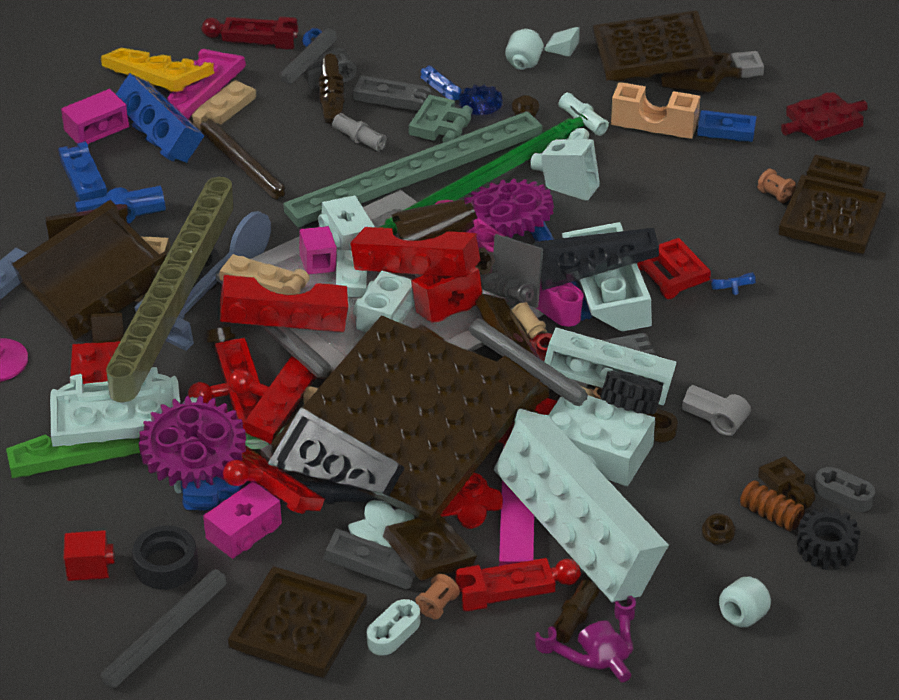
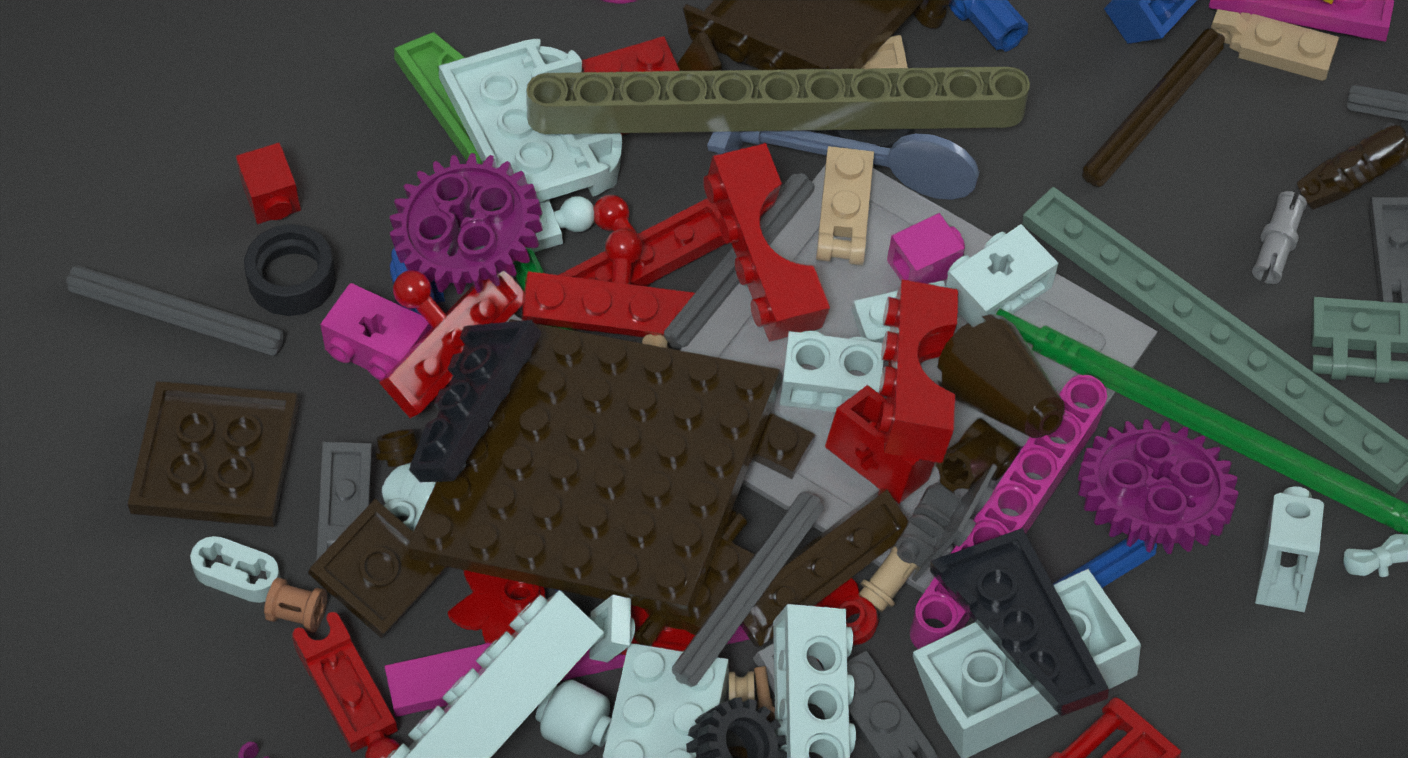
camera: 75 degrees right, 15 degrees up
(335, 520) = (397, 447): none -> dark brown plate

